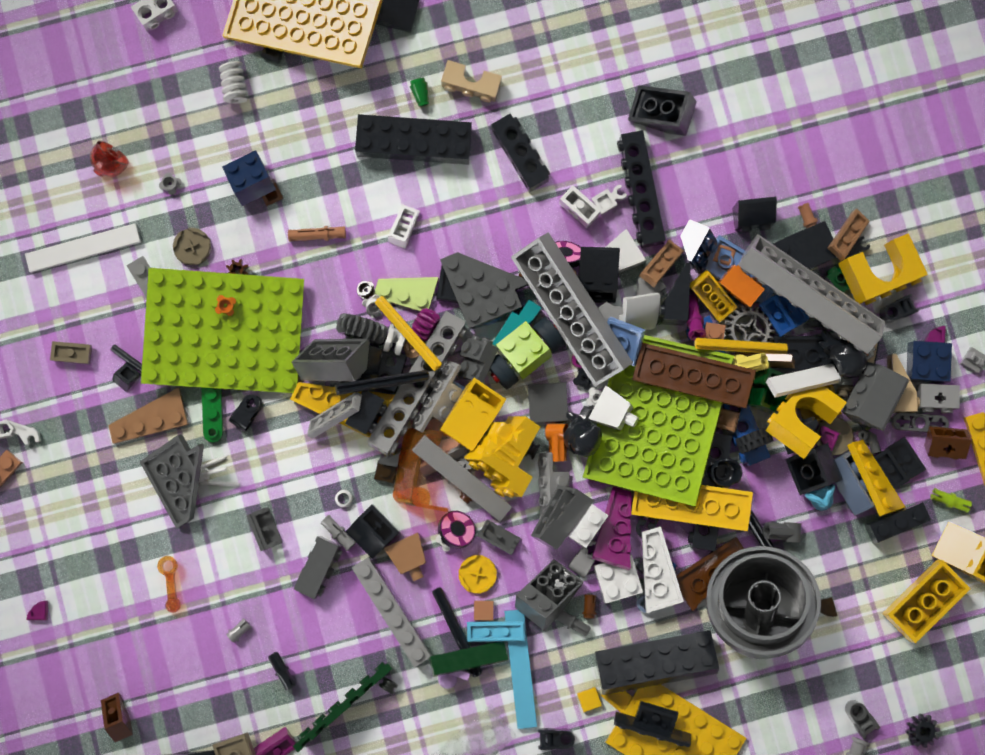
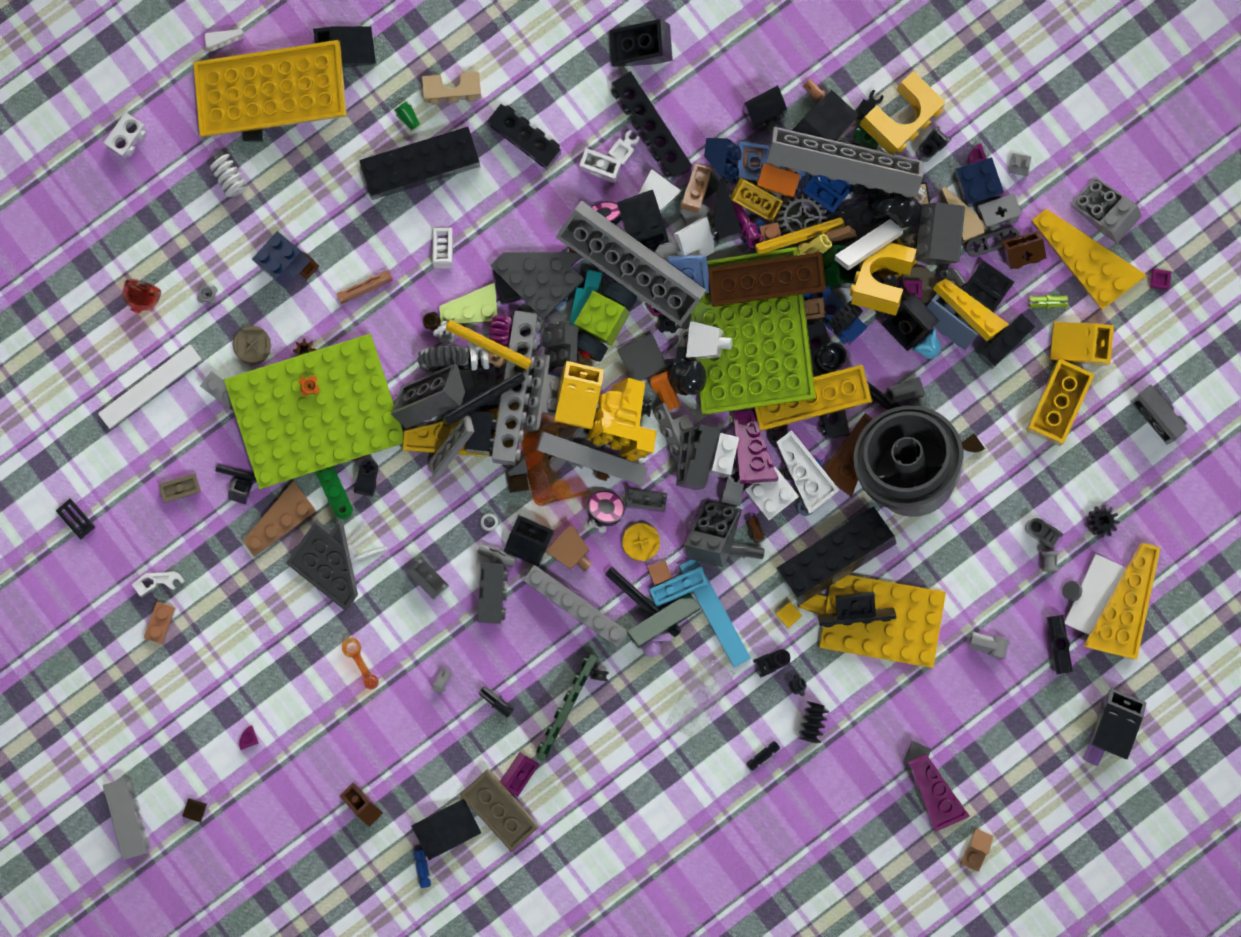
camera: 25 degrees left, 0 degrees up
(848, 234) = (859, 93): medium nougat tile -> none

